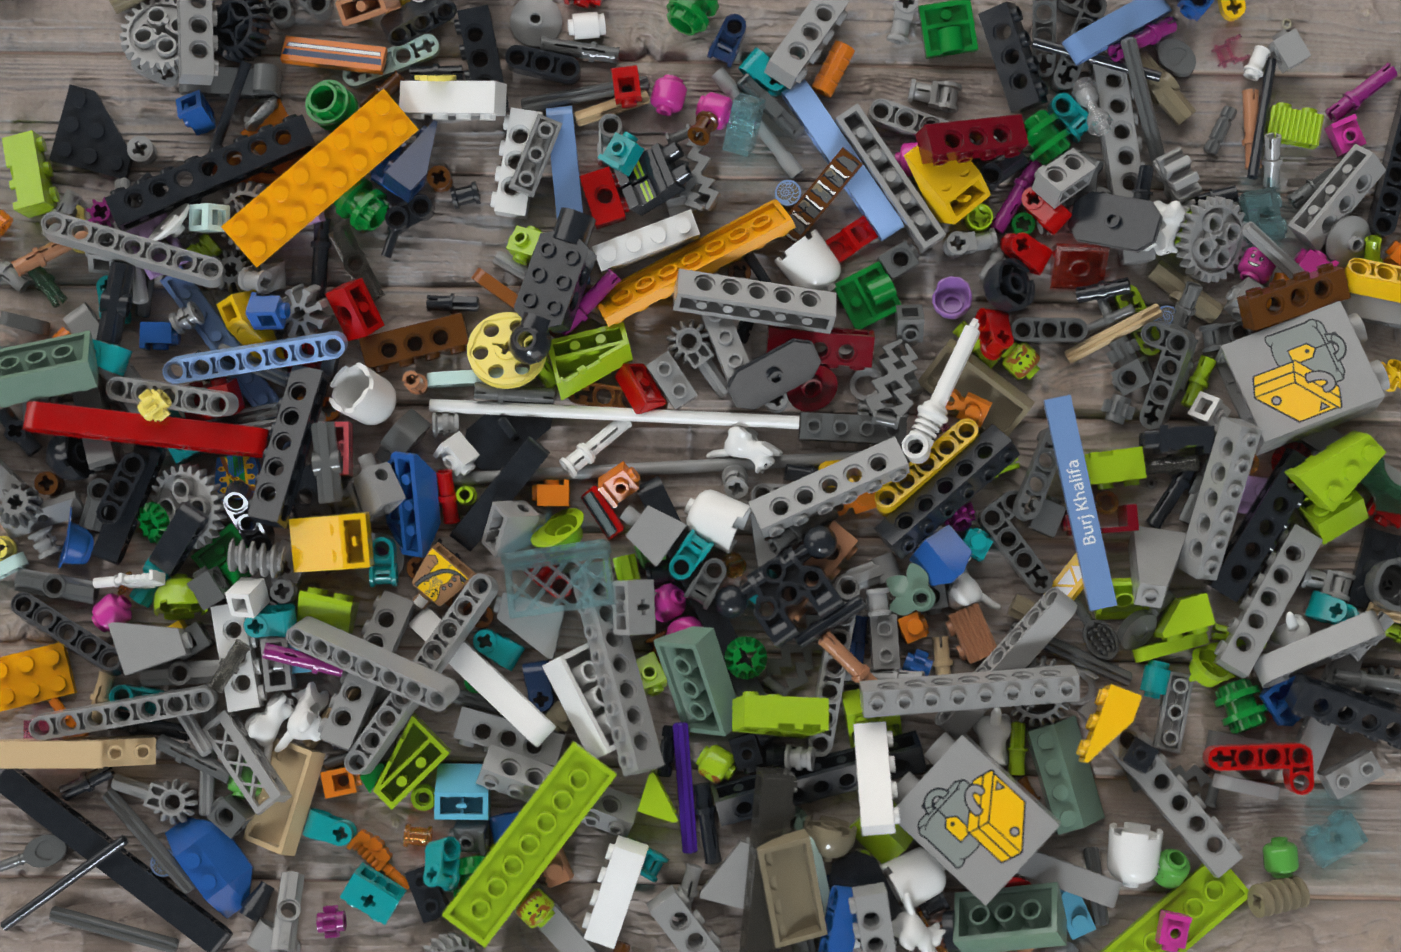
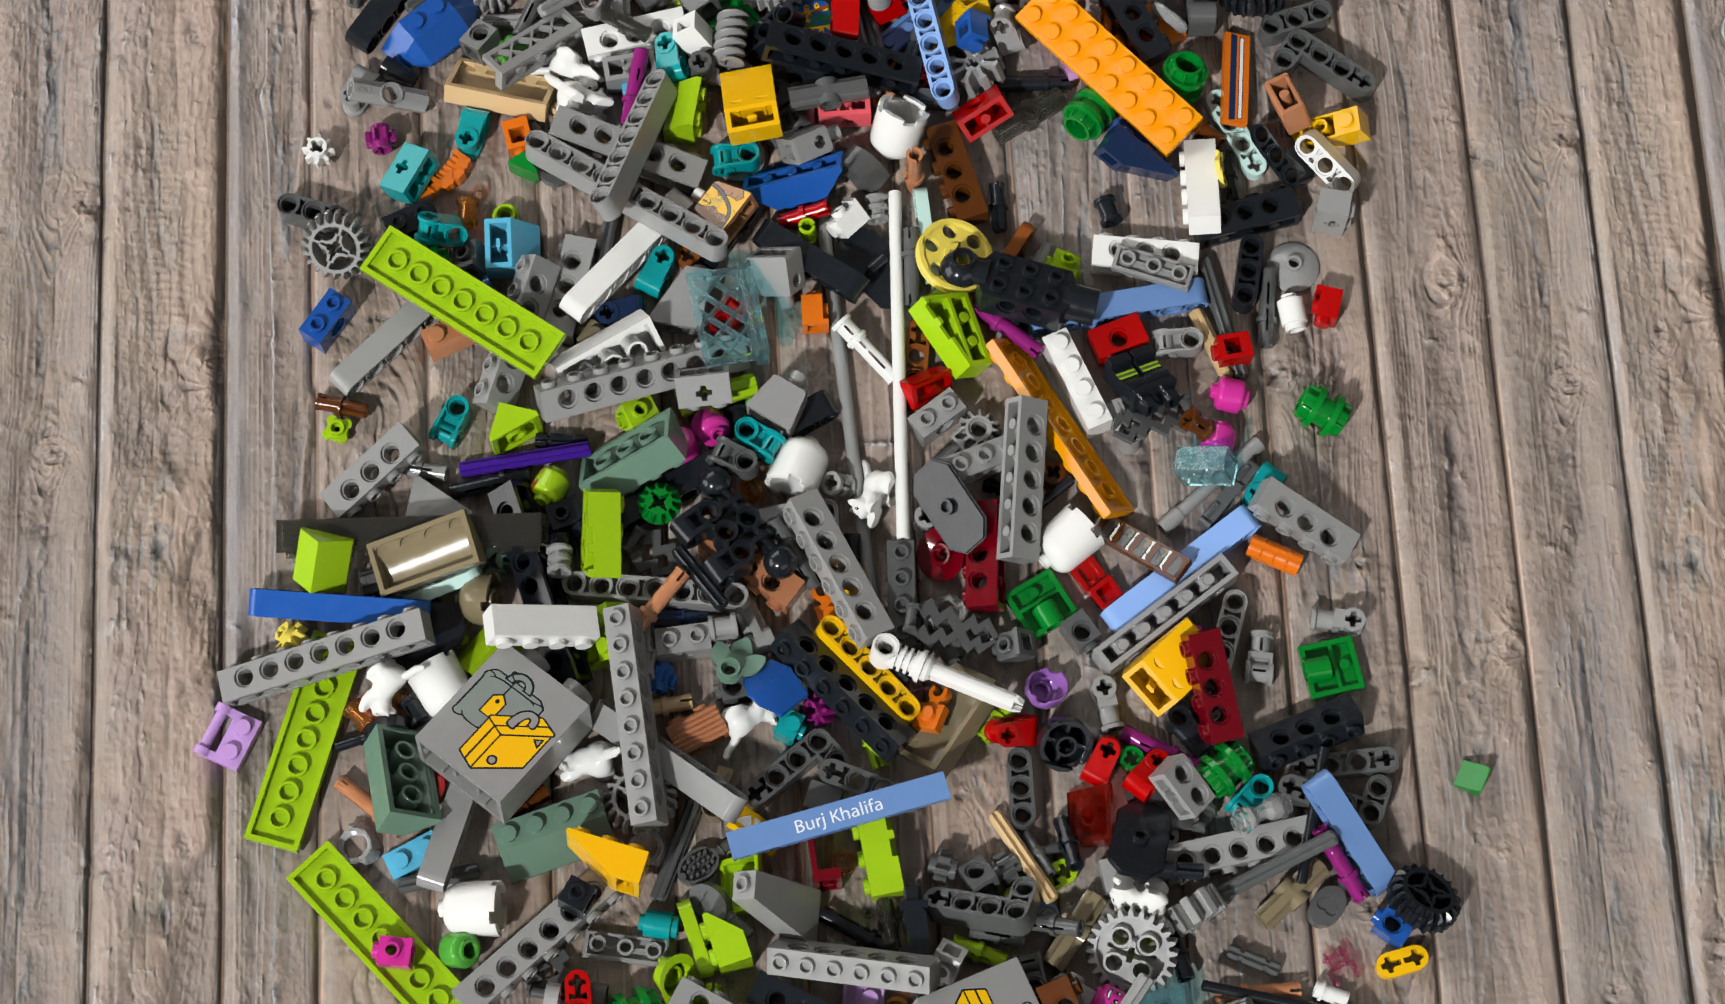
camera: 90 degrees right, 15 degrees down
(410, 762) = (540, 198): lime wedge -> none
(411, 219) = (1080, 161): black beam -> none
(438, 171) = (1116, 181): reddish brown bush -> none
(535, 908) = (399, 318): lime head -> none
(560, 529) = (777, 321): lime piece -> none
(602, 512) = (802, 361): slope -> none
(615, 892) = (418, 393): white brick -> none
(620, 474) = (828, 372): orange brick -> none
(622, 153) = (1162, 346): teal brick -> none
(726, 44) = (1291, 448): dark blue piece -> none
(788, 193) = (1141, 519): tile -> none
(912, 626) = (700, 670): orange brick -> none
(982, 215) = (1134, 706): lime wheel -> none
(1017, 749) = (578, 786): lime axle -> none
(1021, 360) = (986, 764): lime head -> none

